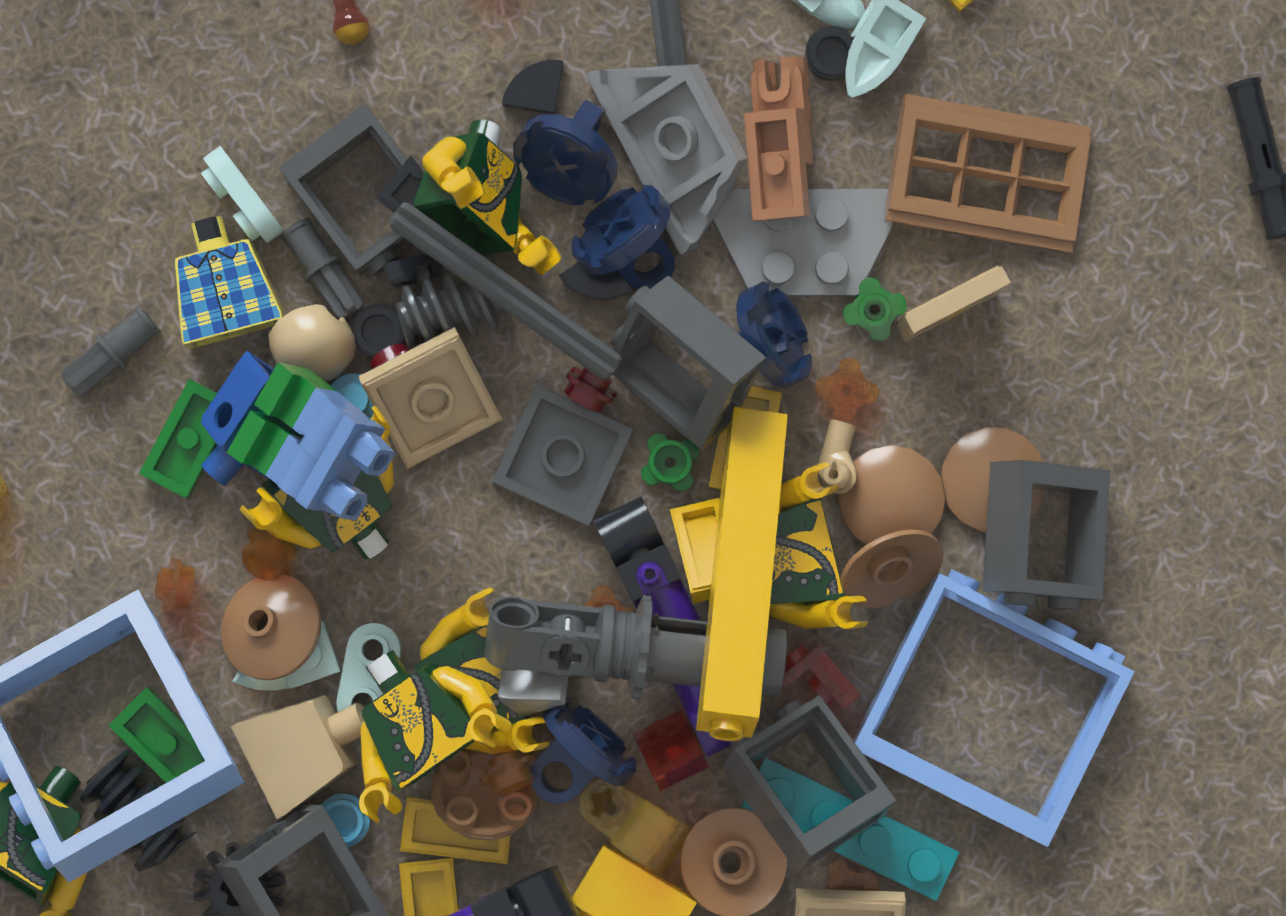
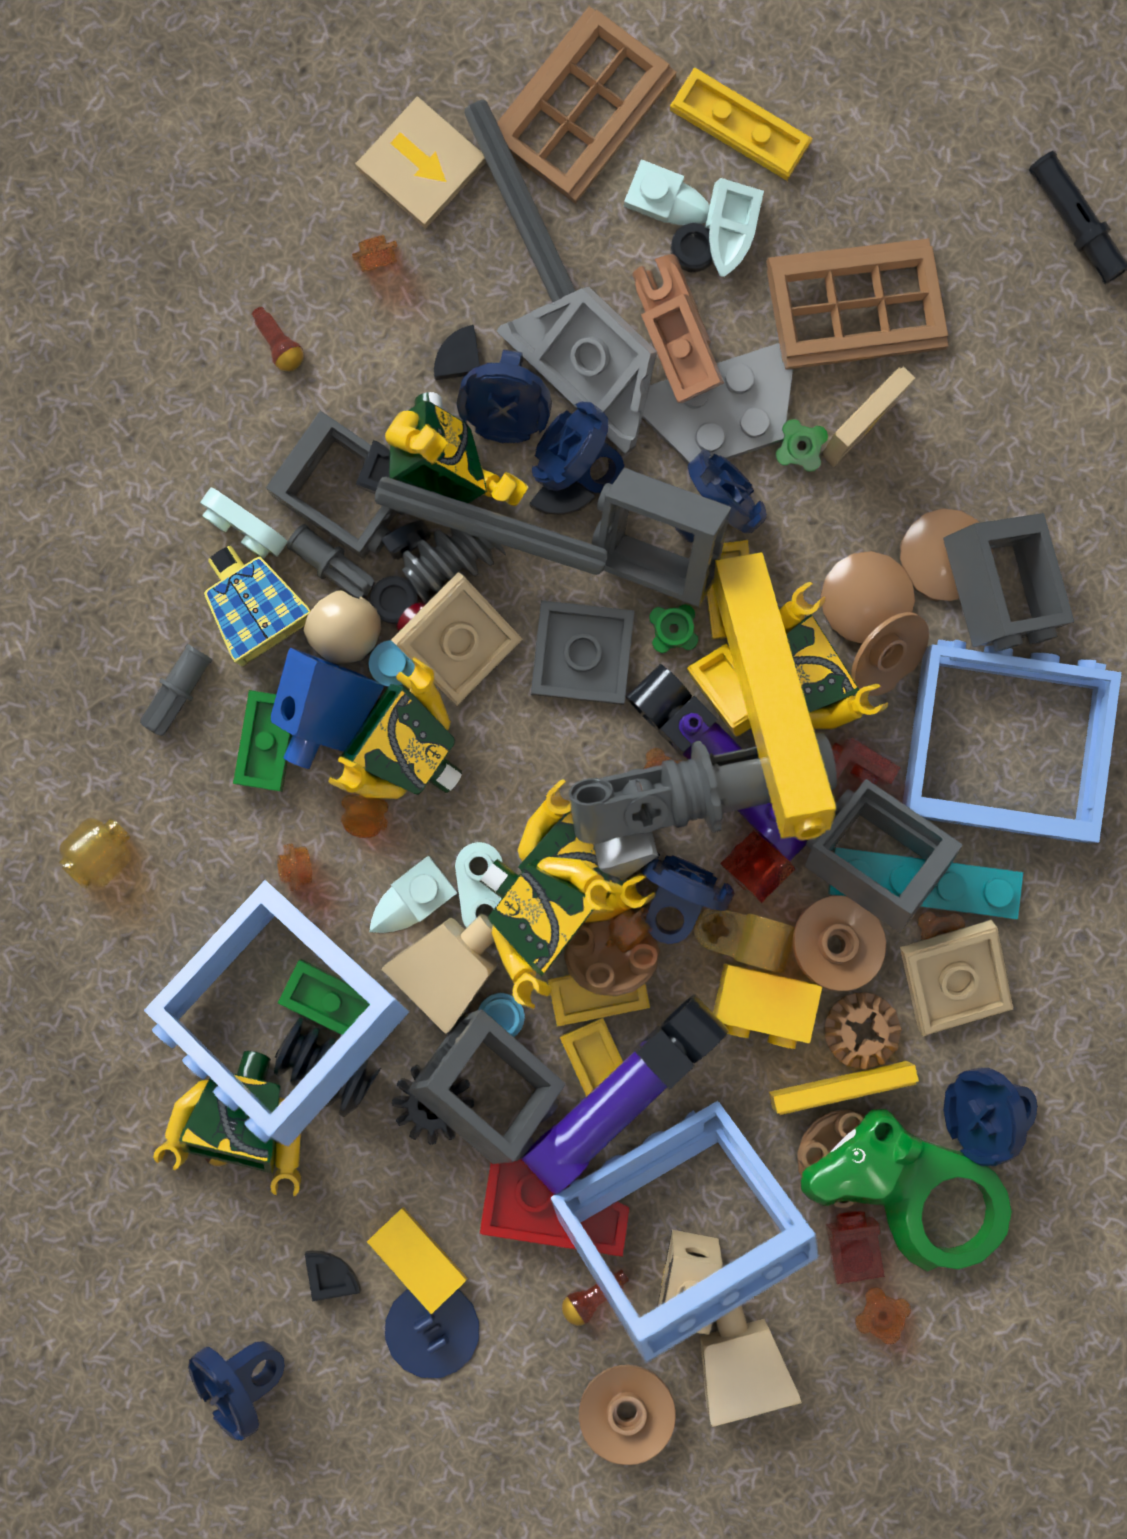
camera: 20 degrees left, 0 degrees up
(286, 639) = (403, 879): medium nougat dish -> none
(312, 442) = (371, 703): medium blue hips -> none
(589, 389) = (586, 588): dark red plate -> none
(831, 390) = (799, 507): clear orange plate -> none
(836, 453) = (808, 571): tan arm -> none

